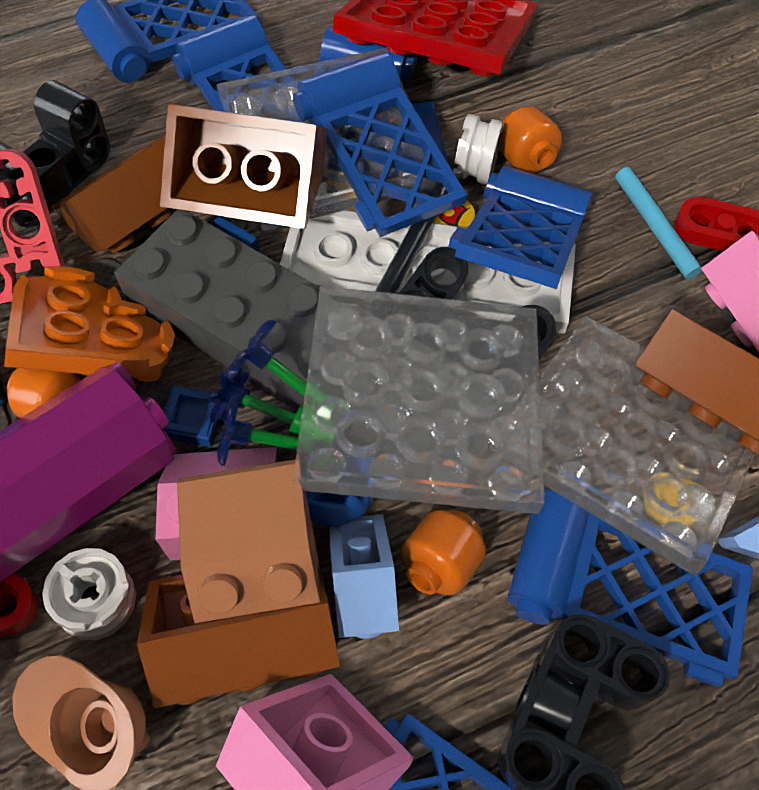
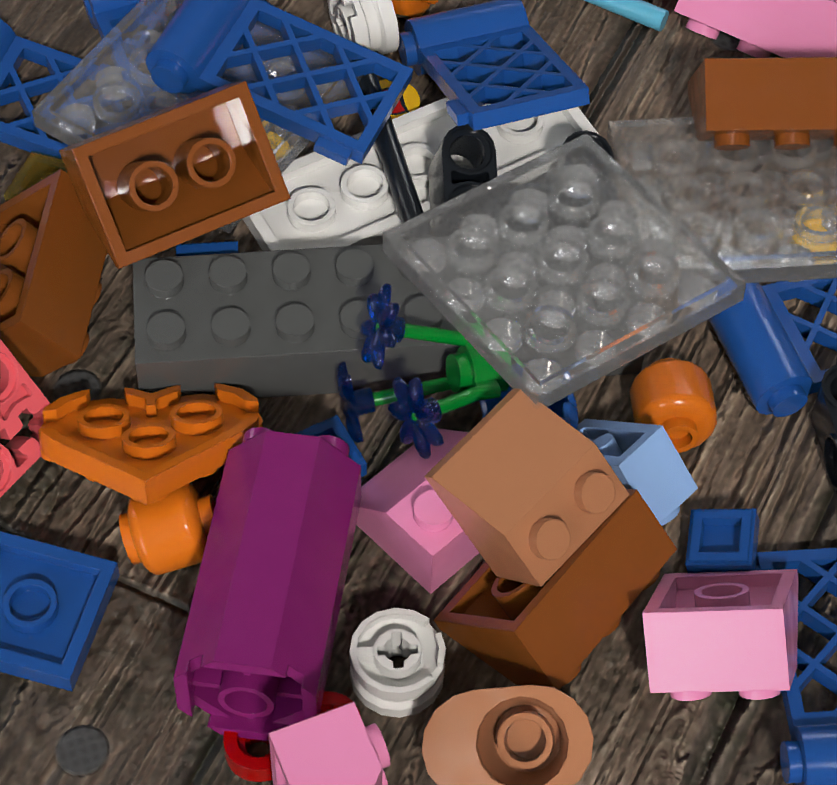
camera: 40 degrees left, 5 degrees down
(388, 685) = (722, 540): none -> blue tile

